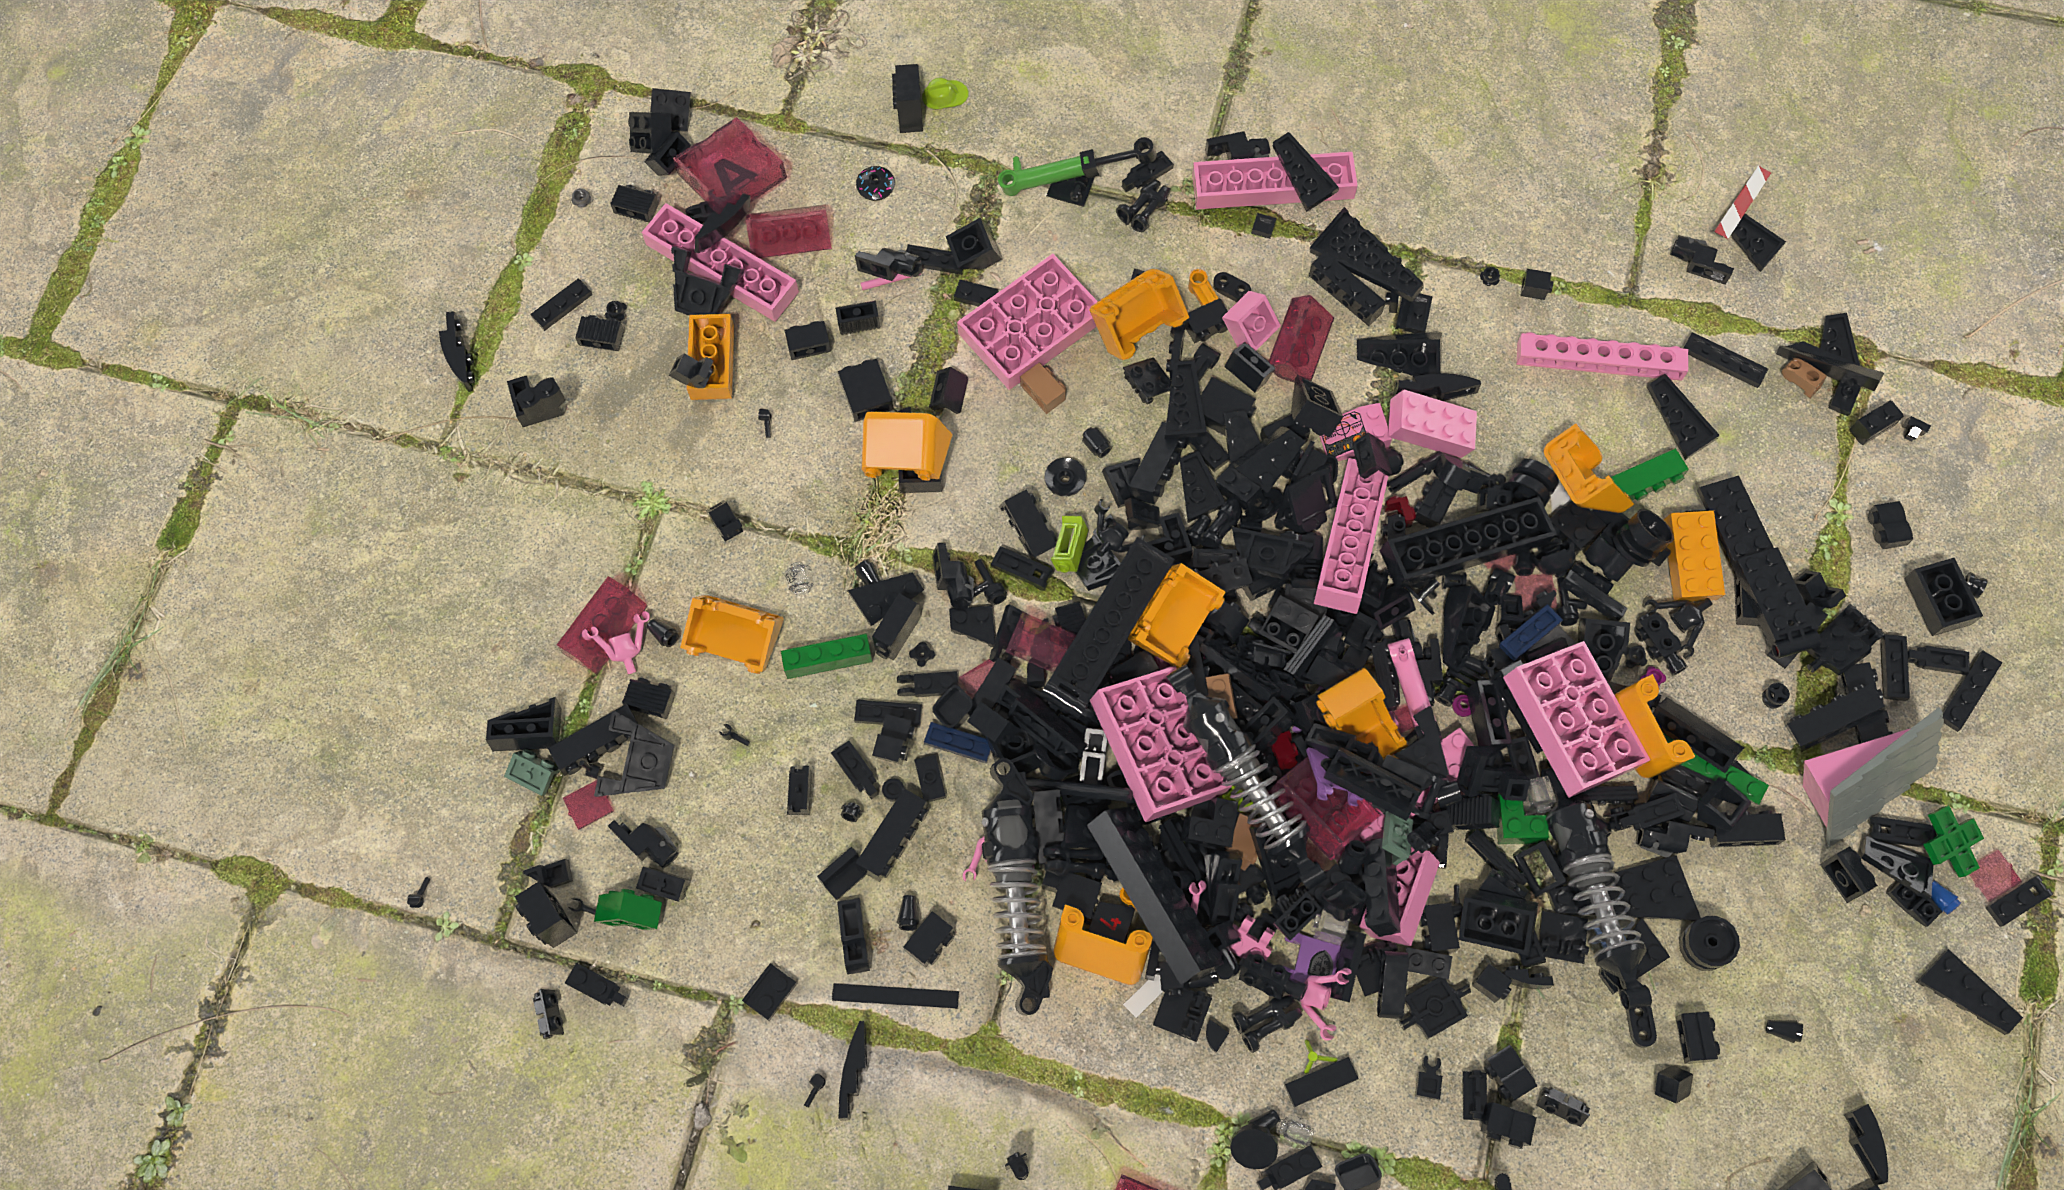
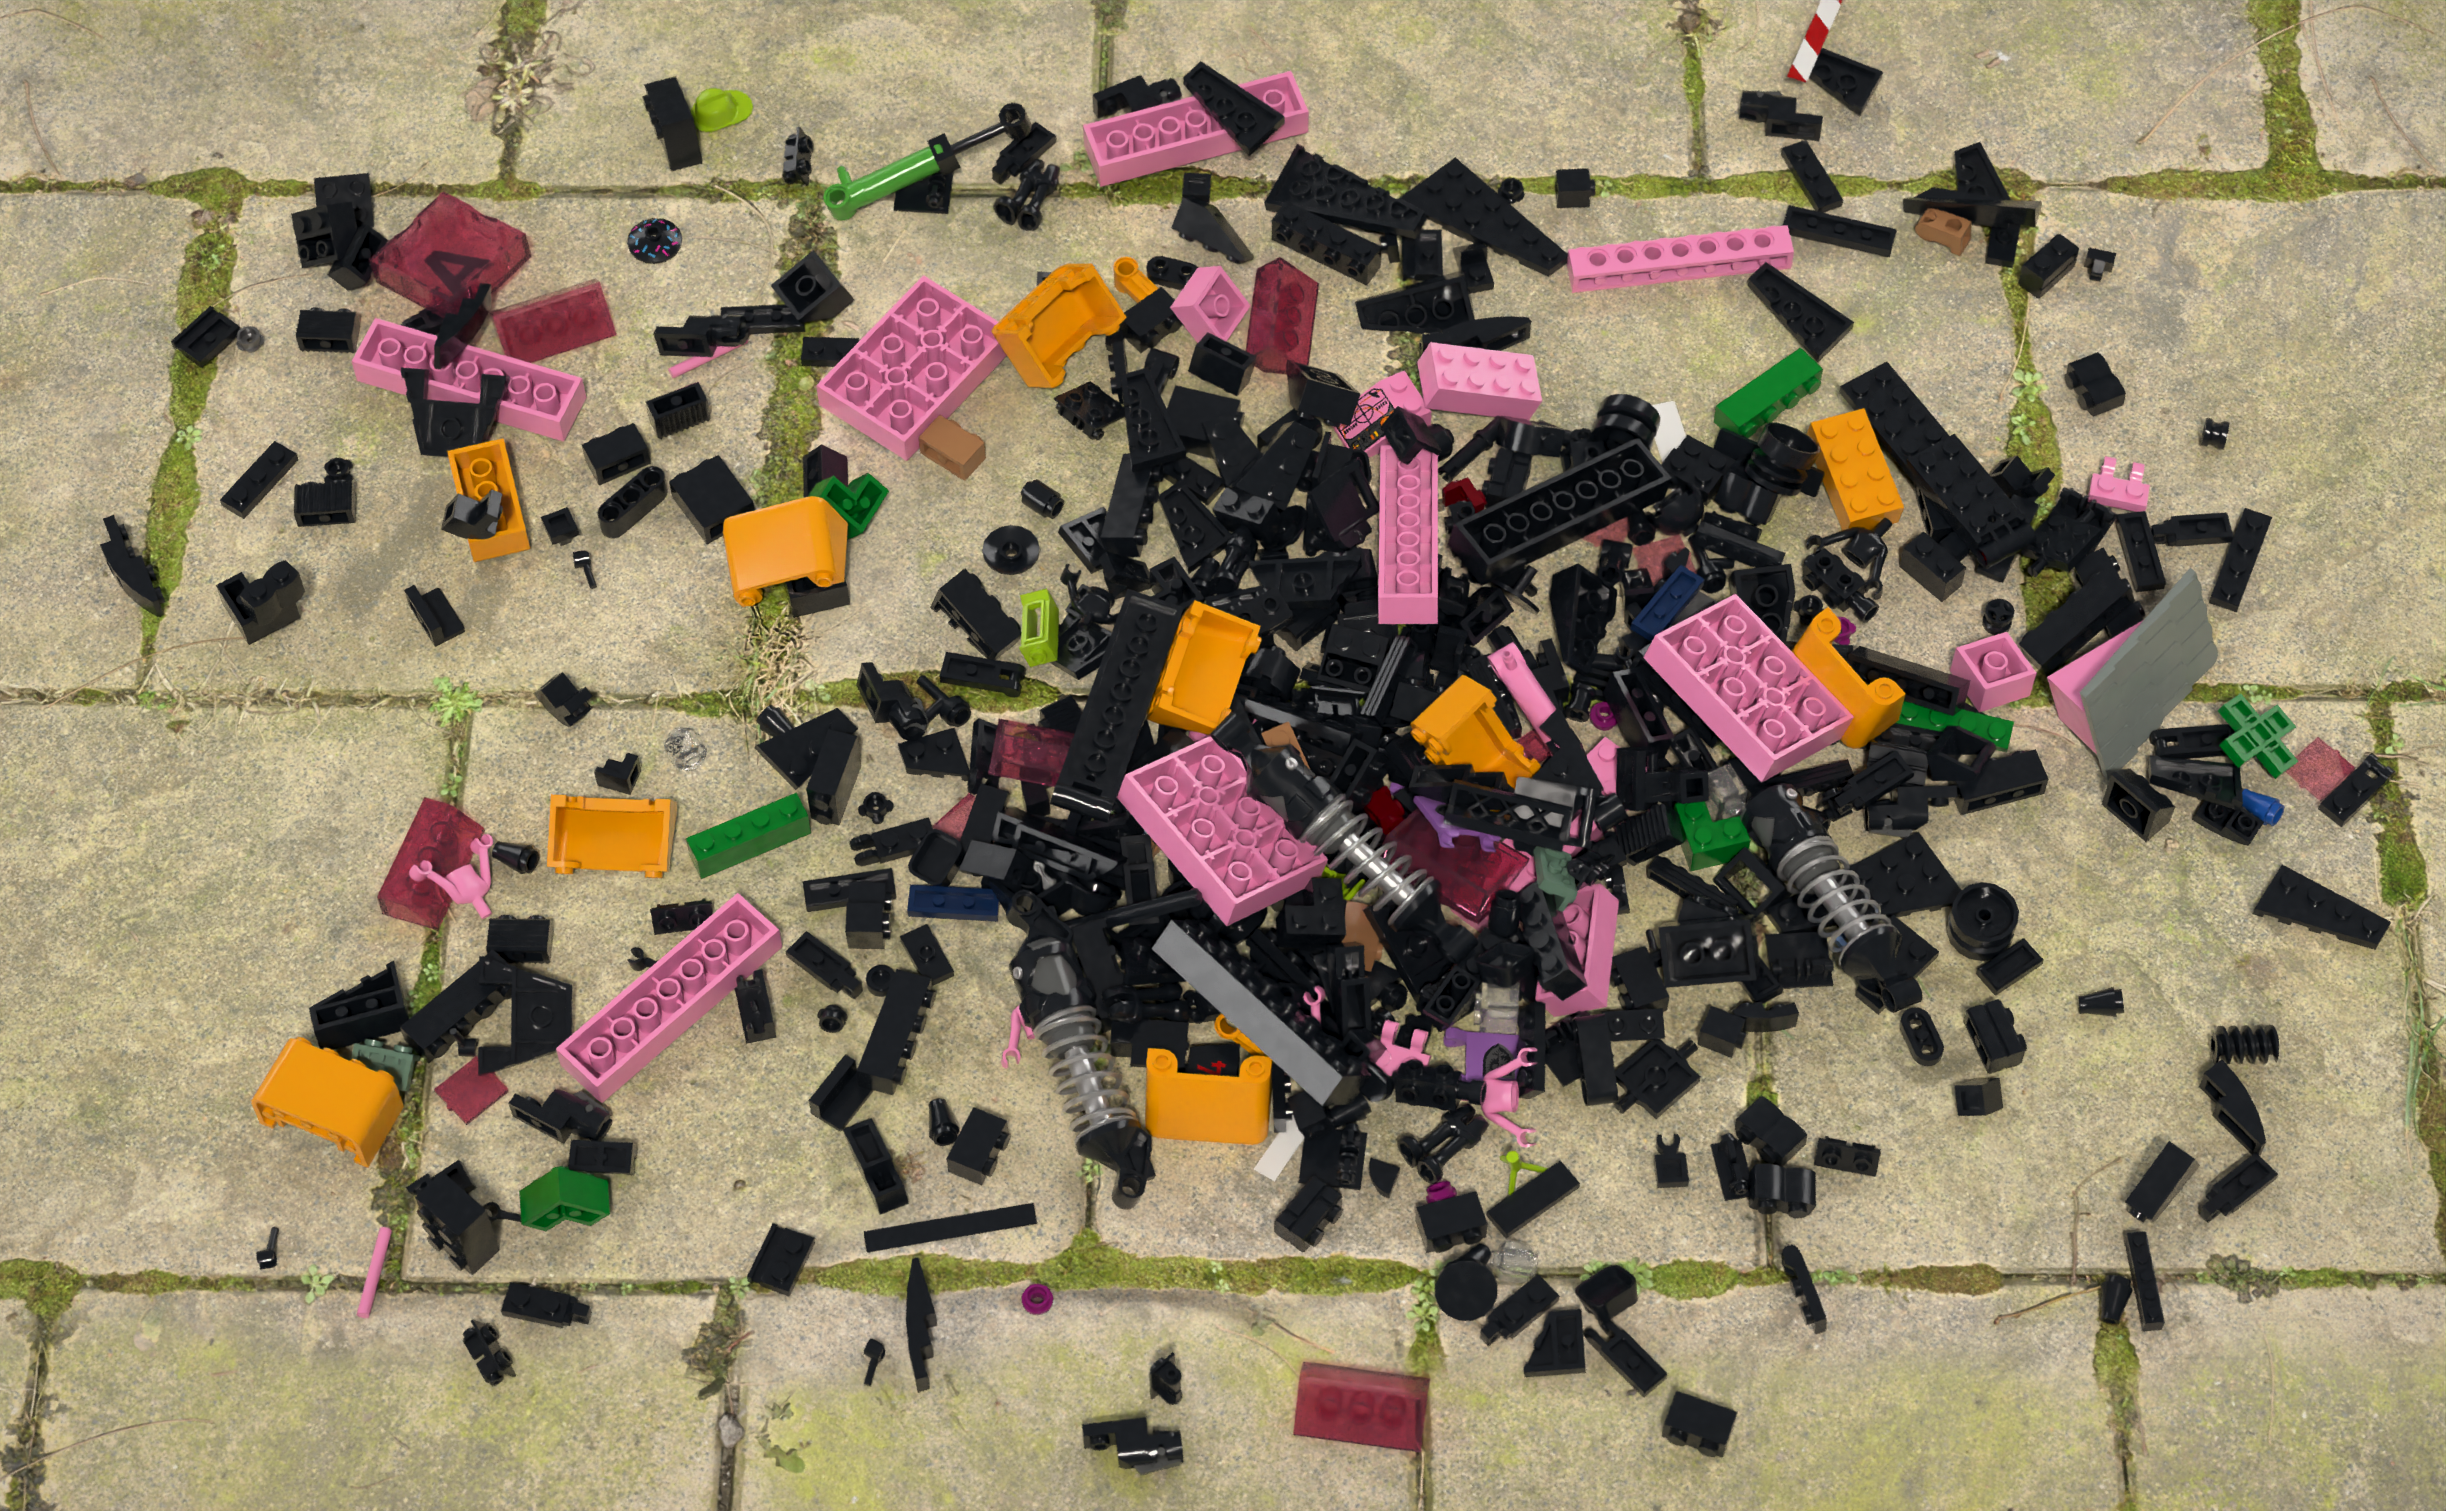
camera: 15 degrees left, 10 degrees down
(485, 793) = (329, 1098): none -> light orange windscreen
(486, 929) = (374, 1272): none -> bright pink bar
(552, 189) = (206, 336): none -> black plate
(654, 434) = (434, 614): none -> black panel
(739, 770) = (669, 998): none -> bright pink brick
(749, 586) = (619, 775): none -> black panel
(754, 387) = (560, 526): none -> black tile
(758, 706) = (681, 918): none -> black hinge
(815, 371) = (637, 490): none -> black beam
(935, 1070) = (1034, 1291): none -> magenta plate
(958, 419) = (854, 503): none -> green brick
(991, 136) = (798, 149): none -> black hinge
(1154, 1054) = (1309, 1214): none -> black brick
(1254, 1062) = (1440, 1191): none -> magenta plate
(1256, 1088) = (1451, 1222): none -> black brick
(1265, 257) = (1207, 224): none -> black slope
(1446, 583) = (1548, 567): black bush -> none
(1449, 324) = (1474, 261): none -> black slope
(1464, 291) = (1479, 214): none -> black wing
(1572, 459) = (1678, 392): light orange windscreen -> none
(1713, 312) = (1811, 176): none -> black plate
(1720, 981) = (2009, 966): none -> black tile
(1738, 643) = (1936, 564): none -> black brick
(1764, 741) = (1996, 671): none -> bright pink brick
(1888, 1091) = (2244, 1042): none -> black piece
(1889, 616) = (2119, 493): none -> bright pink plate
(1943, 596) = (2179, 453): black brick -> none

